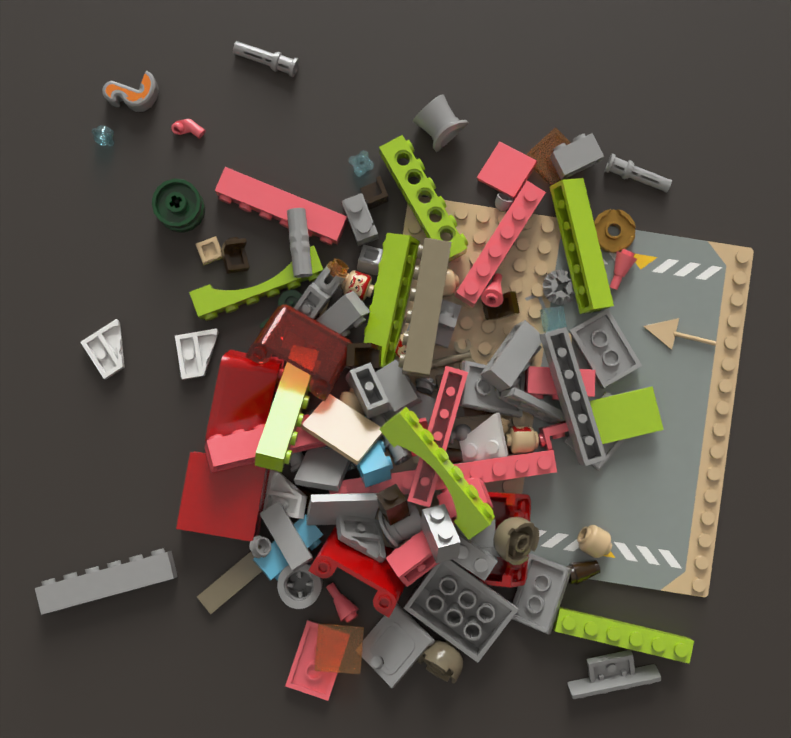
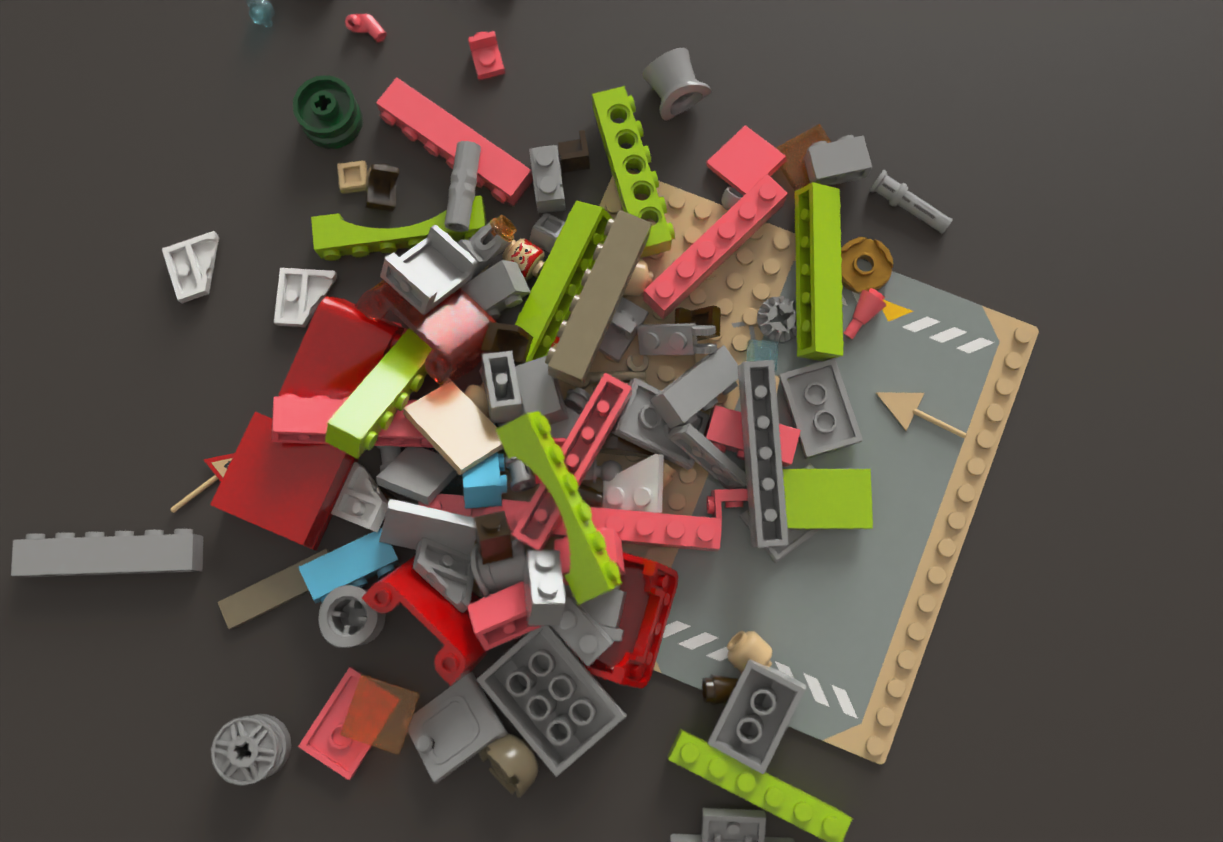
camera: 15 degrees right, 5 degrees down
(173, 498) = (218, 466): none -> tan piece
(264, 689) = (268, 743): none -> light grey wheel
(265, 546) = (317, 553): light grey plate -> none
(286, 536) = (348, 548): light grey tile -> none
(287, 130) = (486, 55): none -> coral bracket
(294, 316) = (429, 270): none -> light grey panel
(345, 608) = (403, 662): coral cone -> none
(367, 164) = (570, 120): clear light blue plate -> none
(487, 323) = (674, 339): none -> light grey hinge
(493, 293) = (690, 305): coral cone -> none
(515, 539) = (644, 623): dark tan cylinder -> none
(522, 440) = (684, 497): tan head -> none
(541, 594) = (663, 706): light grey tile -> none
(611, 584) = (757, 715): none -> light grey slope

